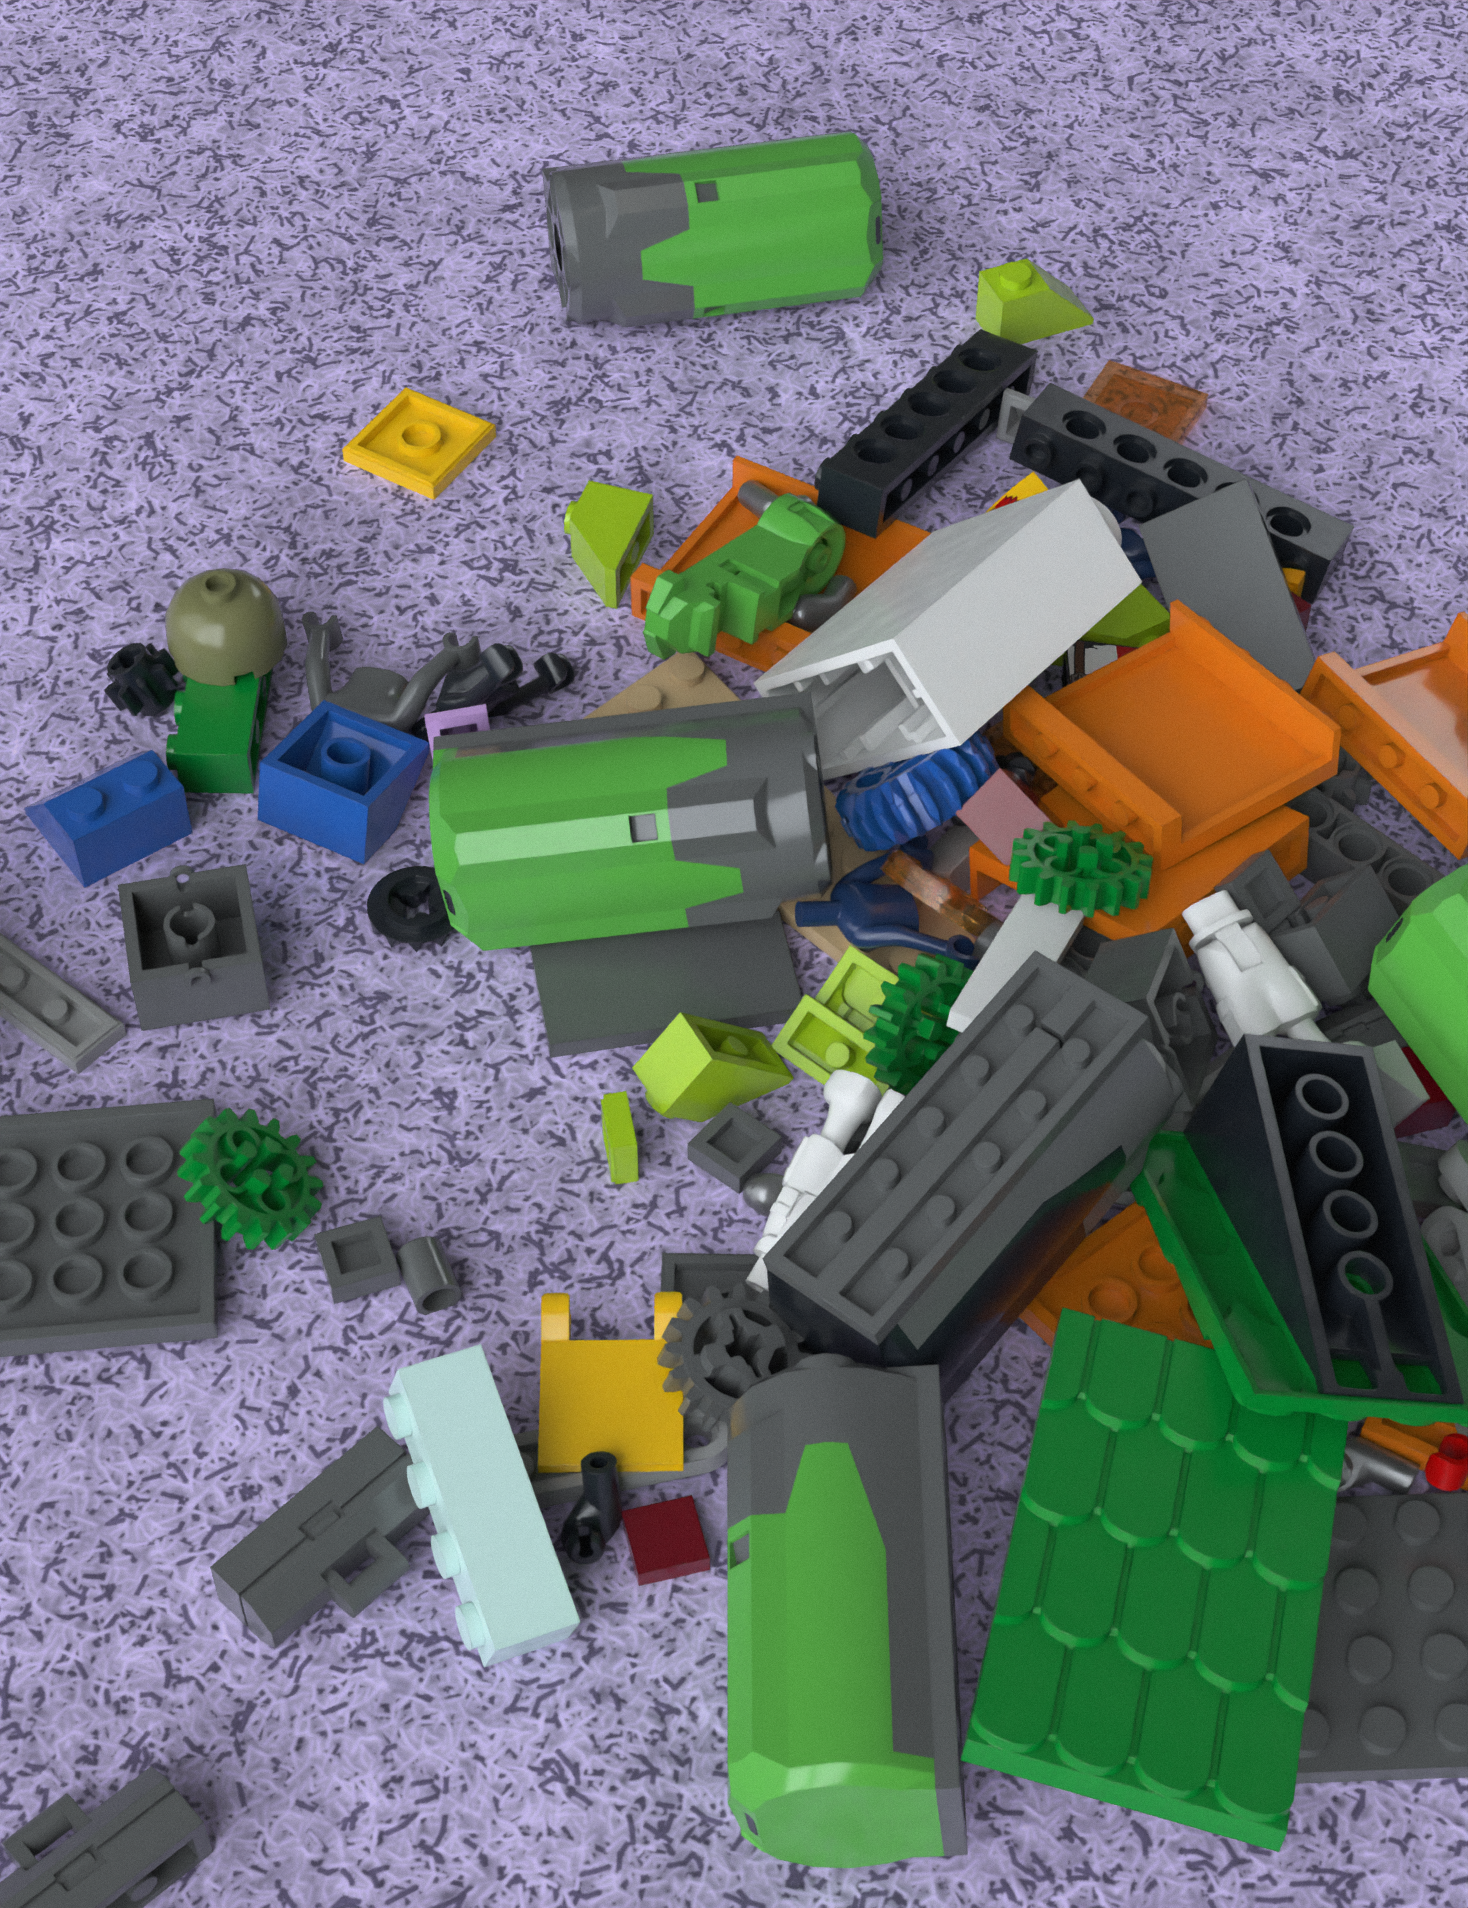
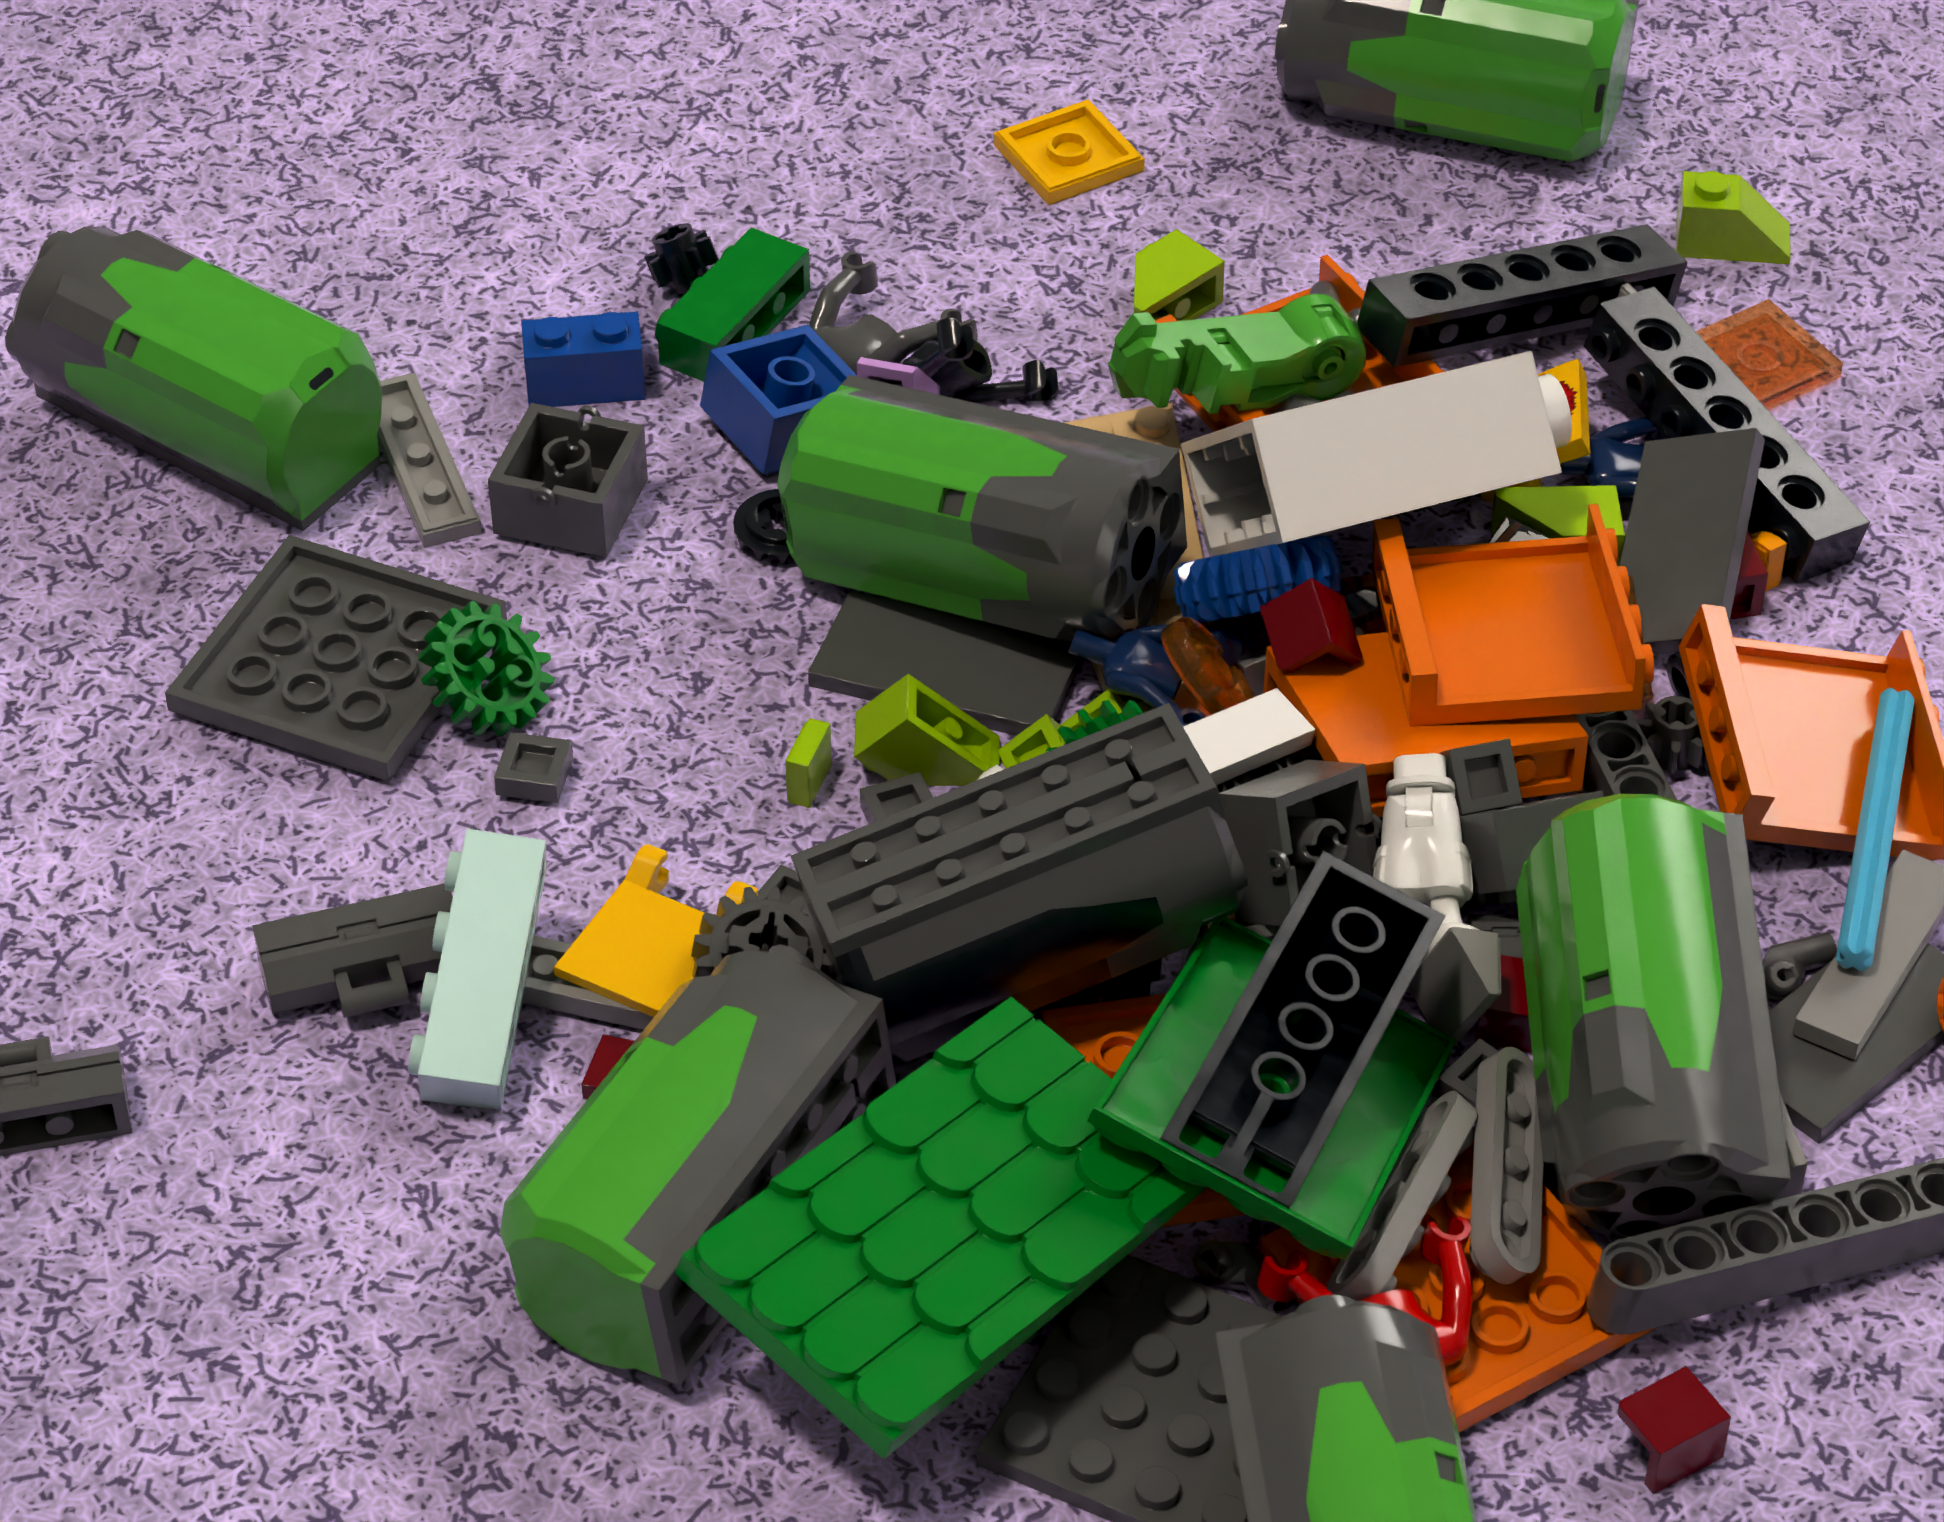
camera: 30 degrees right, 5 degrees down
(224, 627) = (763, 233): olive cylinder -> none
(428, 1275) = (582, 802): dark grey hinge -> none
(596, 1512) = (581, 1024): black arm -> none
(1080, 868) = (1323, 686): green gear -> none

